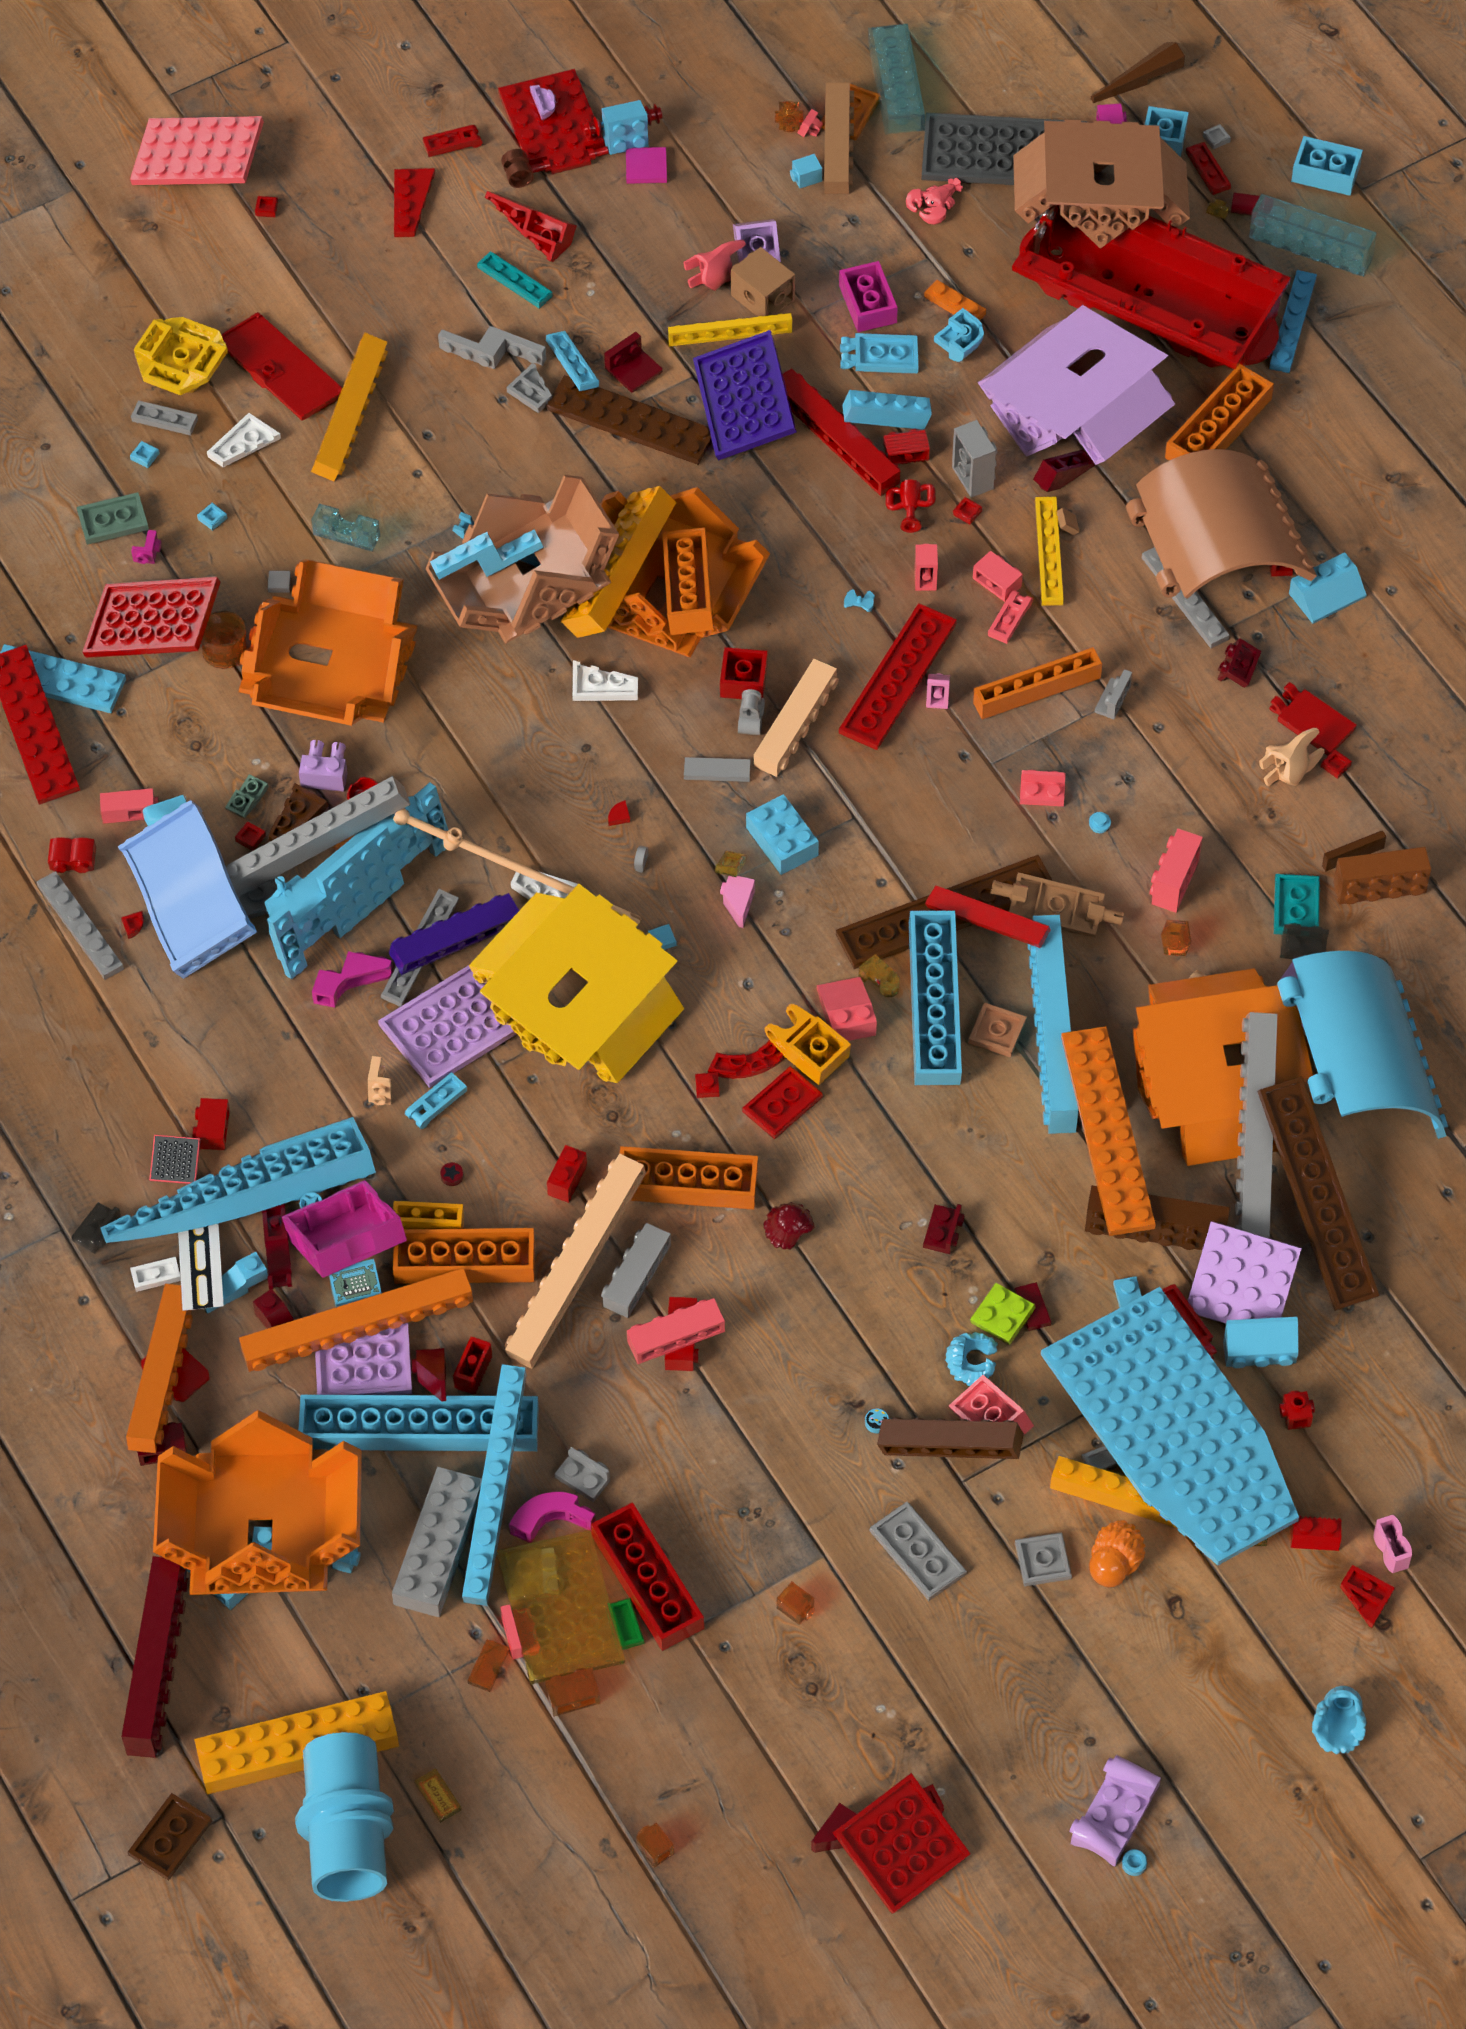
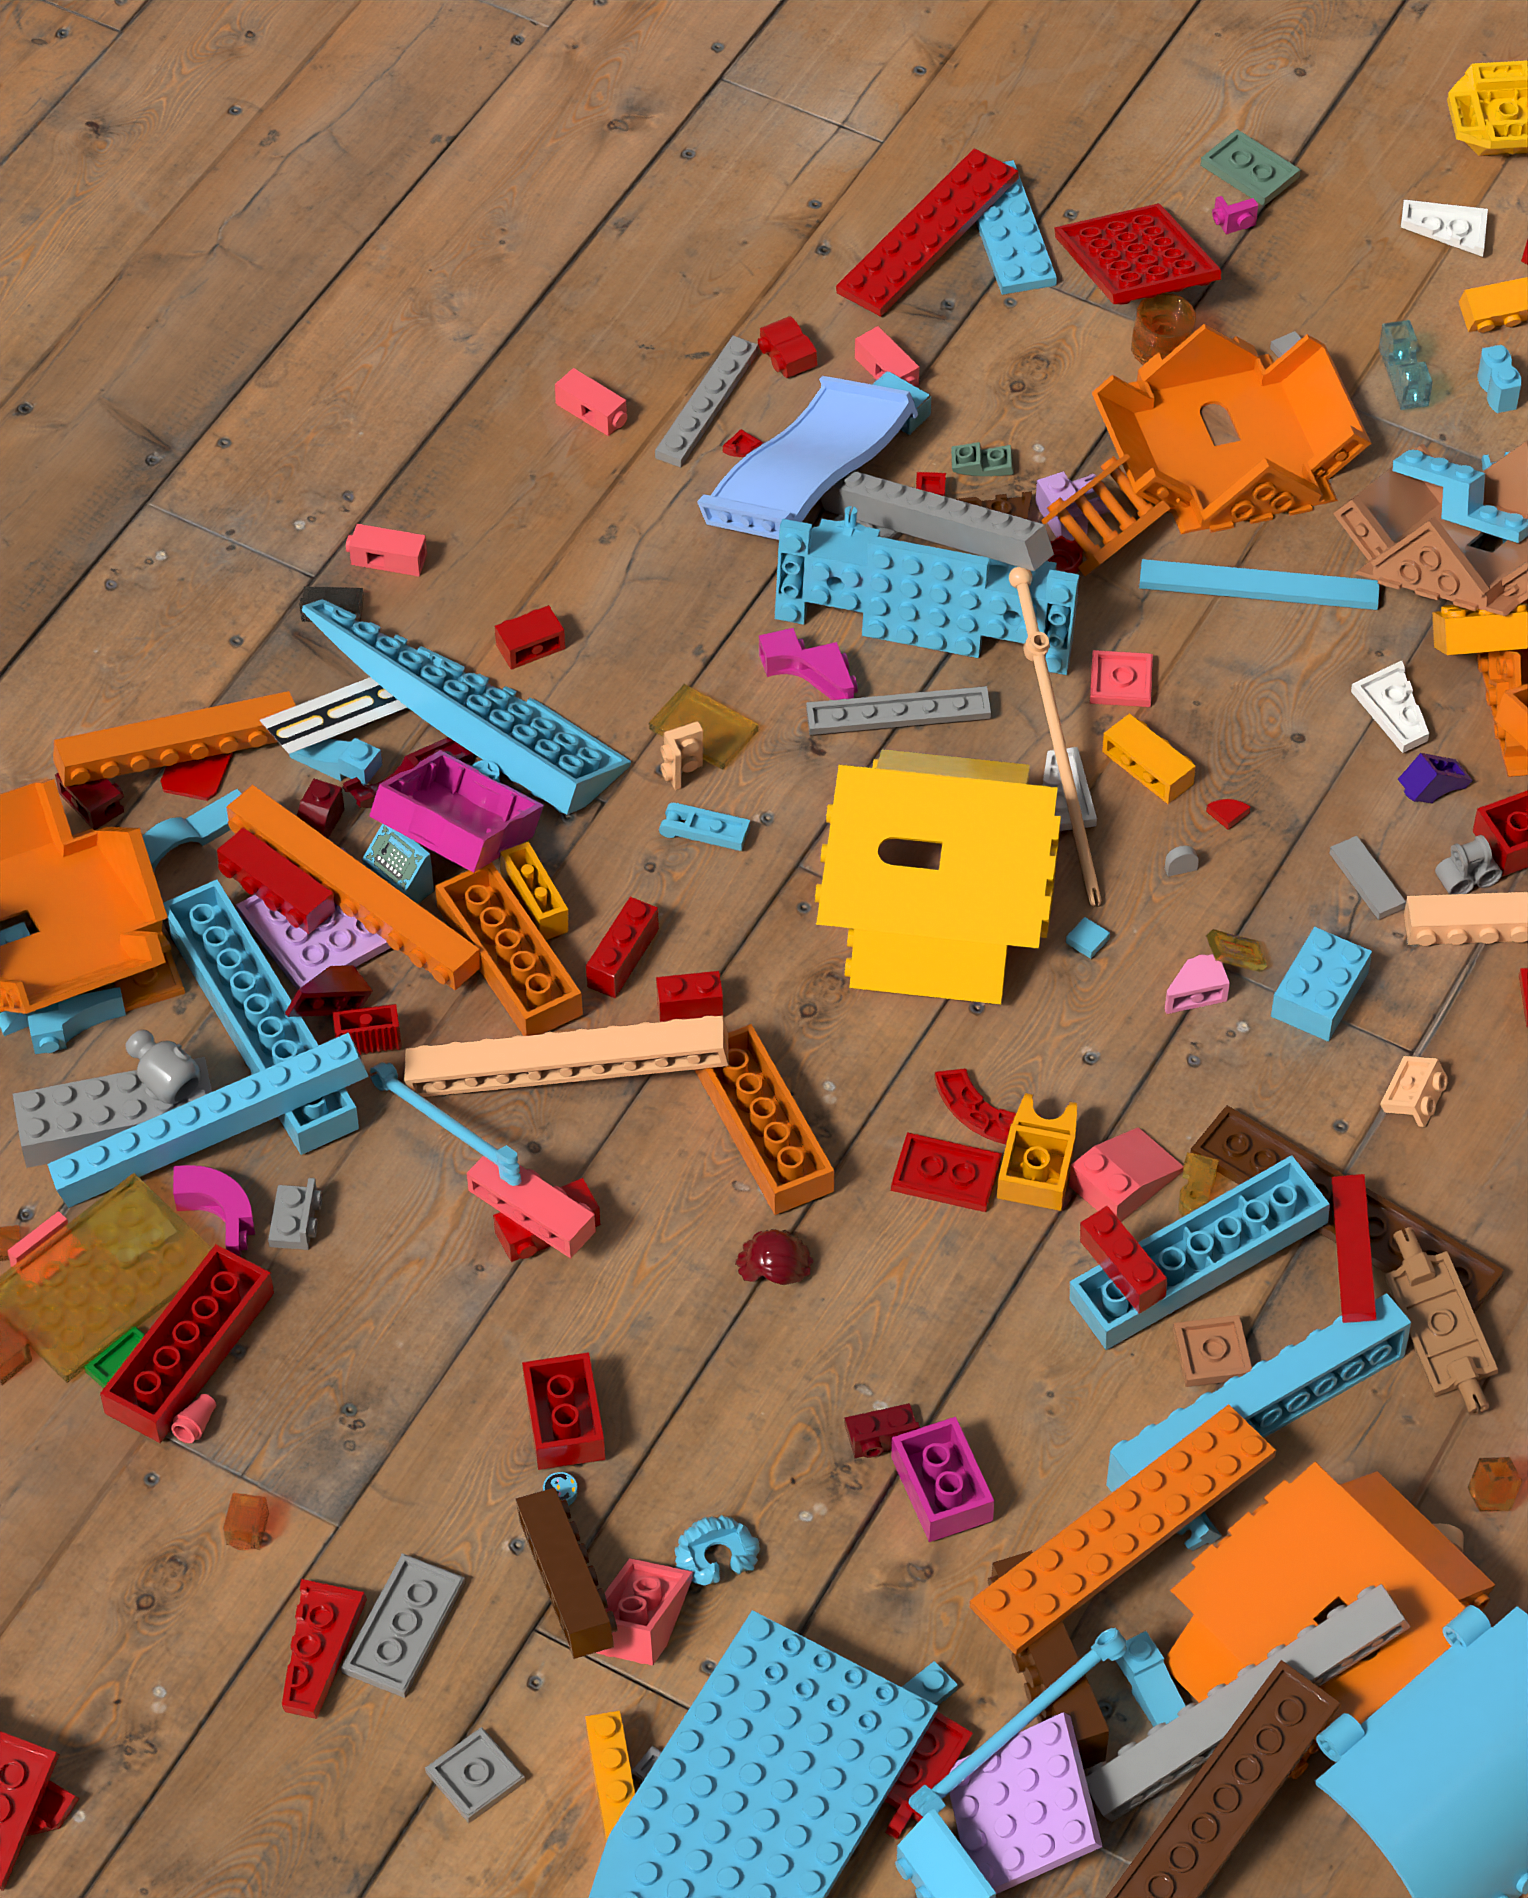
camera: 60 degrees right, 5 degrees down
(35, 991) = (591, 402): none -> coral brick
(76, 1172) = (387, 549): none -> coral brick
(144, 454) = (1359, 154): medium azure tile -> none
(155, 1274) = (302, 680): white plate -> none
(164, 417) = (1419, 145): light grey plate -> none
(175, 1159) = (458, 624): tile -> none
(212, 516) = (1328, 250): medium azure tile -> none
(232, 1388) = (200, 827): none -> medium azure piece
(321, 1362) = (275, 881): none -> red brick
(351, 1061) = (723, 729): none -> clear yellow tile
(367, 739) = (1111, 539): none -> orange fence
(391, 485) = (1499, 378): none -> medium azure brick
(443, 1489) = (163, 1067): none -> light grey piece
(445, 1027) = (792, 782): lavender plate -> none
(452, 934) = (925, 721): dark purple brick -> none
(452, 1174) = (618, 890): dark red tile -> none
(455, 703) = (1259, 584): none -> medium azure tile
(476, 815) = (1121, 678): none -> coral tile
(502, 1191) = (622, 947): none -> red brick
(553, 832) = (1149, 758): none -> light orange brick
(636, 1270) = (605, 1132): light grey brick -> none
(653, 1323) = (504, 1158): none -> medium azure hinge
(672, 695) = (1432, 777): none -> dark purple arch
(703, 1600) = (192, 1420): none -> coral cone
(707, 1085) = (915, 1082): red plate -> none
(829, 1389) = (563, 1411): none -> red brick
(884, 829) = (1415, 1088): none -> light nougat bracket
(899, 1597) = (321, 1637): none -> red wing
(927, 1034) = (1123, 1259): none -> red brick
(1001, 1212) = (942, 1479): none -> dark pink brick
(1002, 1313) = (799, 1555): lime plate -> none
(1040, 1316) = (836, 1586): dark red tile -> none
(1116, 1553) = (518, 1850): orange hair -> none
(1200, 1178) = (1150, 1680): none -> medium azure slope
(1212, 1324) = (1107, 1645): none -> medium azure hinge

